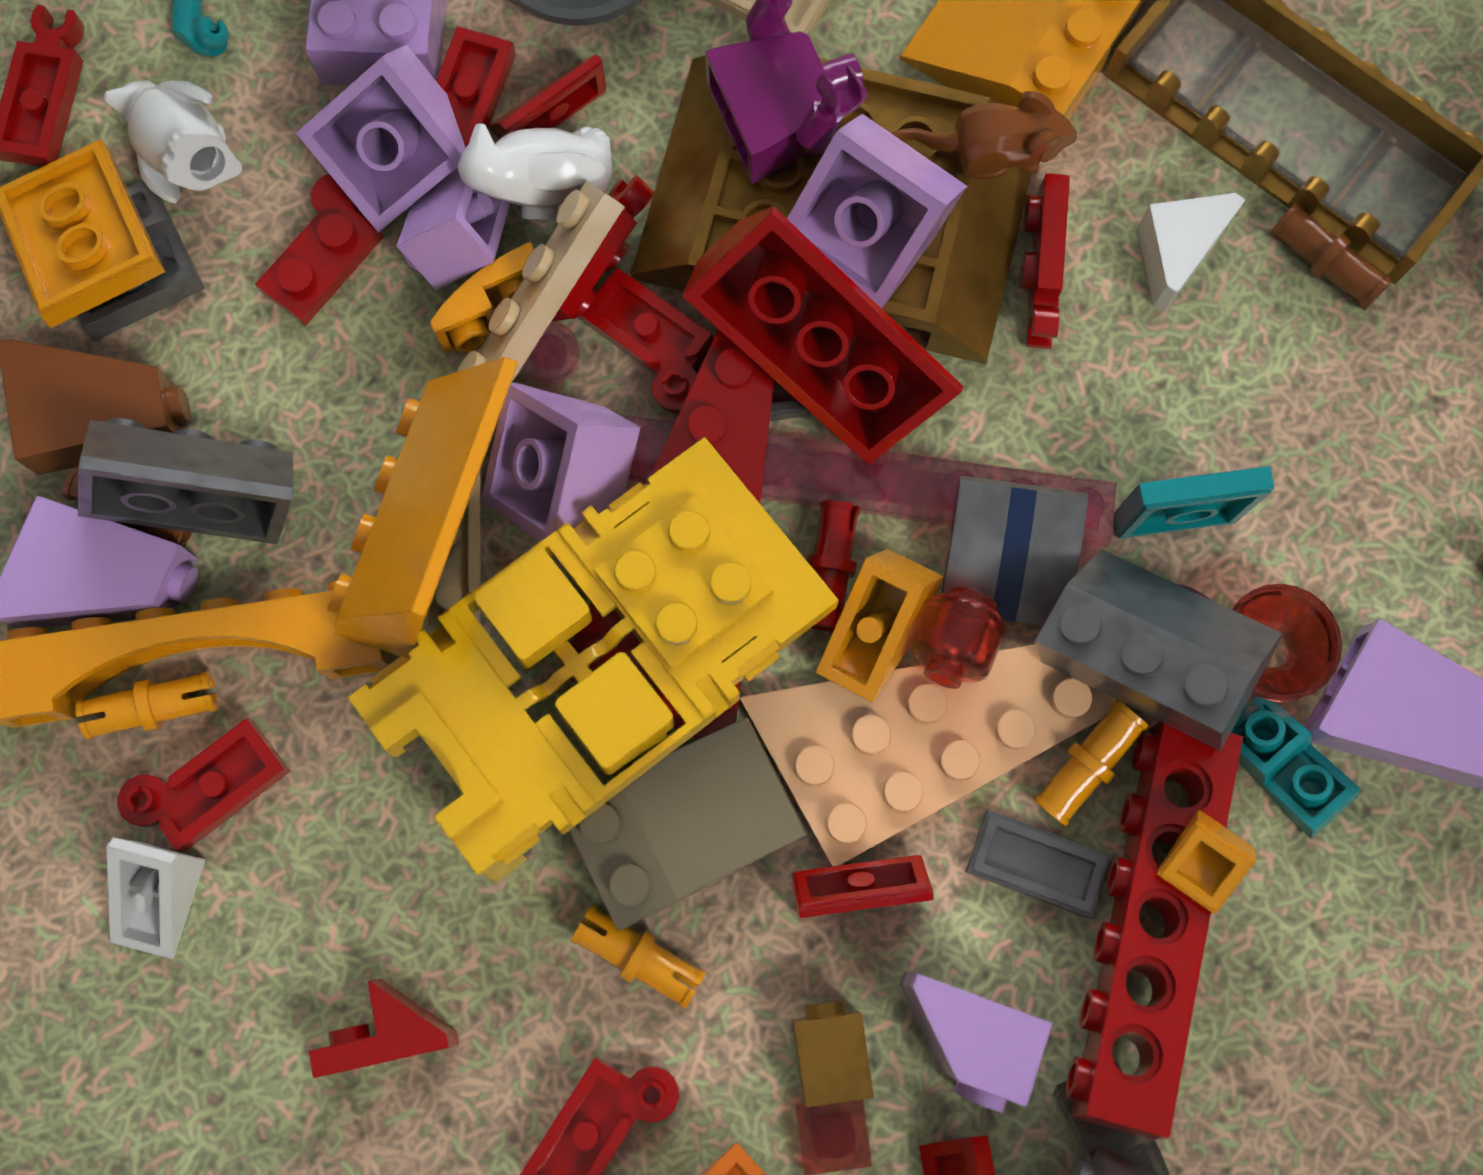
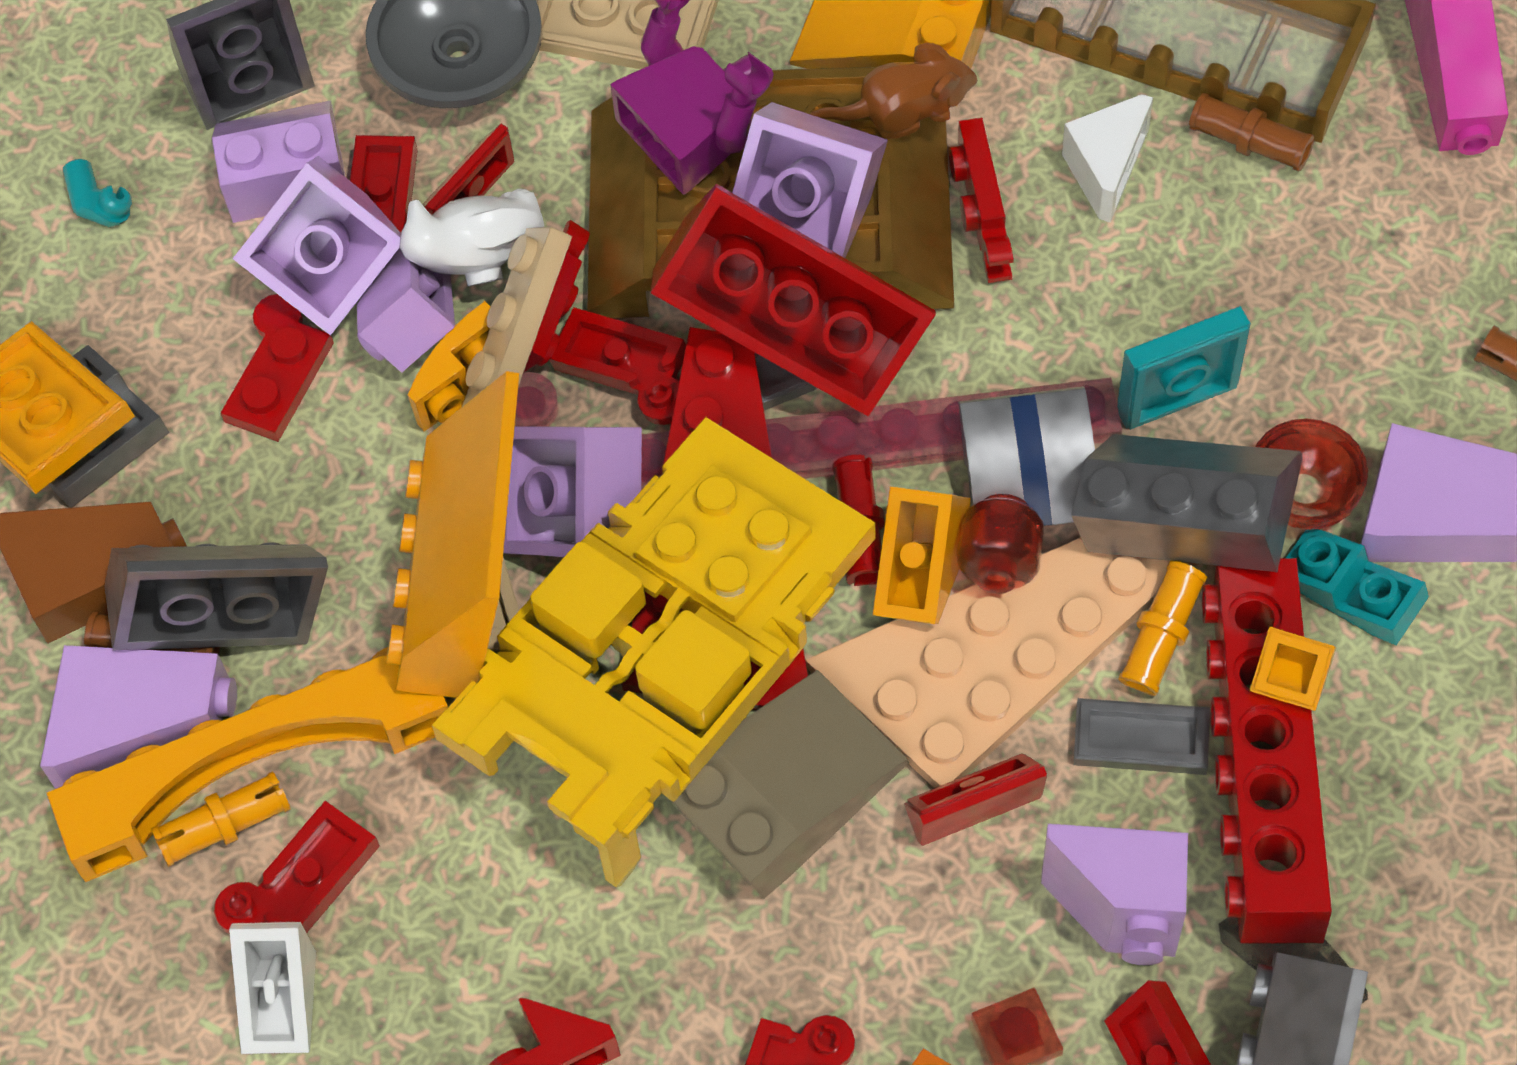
camera: 10 degrees left, 15 degrees down
(174, 136) = (107, 296): white animal -> none
(638, 957) = (775, 919): light orange pin -> none
(832, 1055) = (992, 952): pearl gold brick -> none

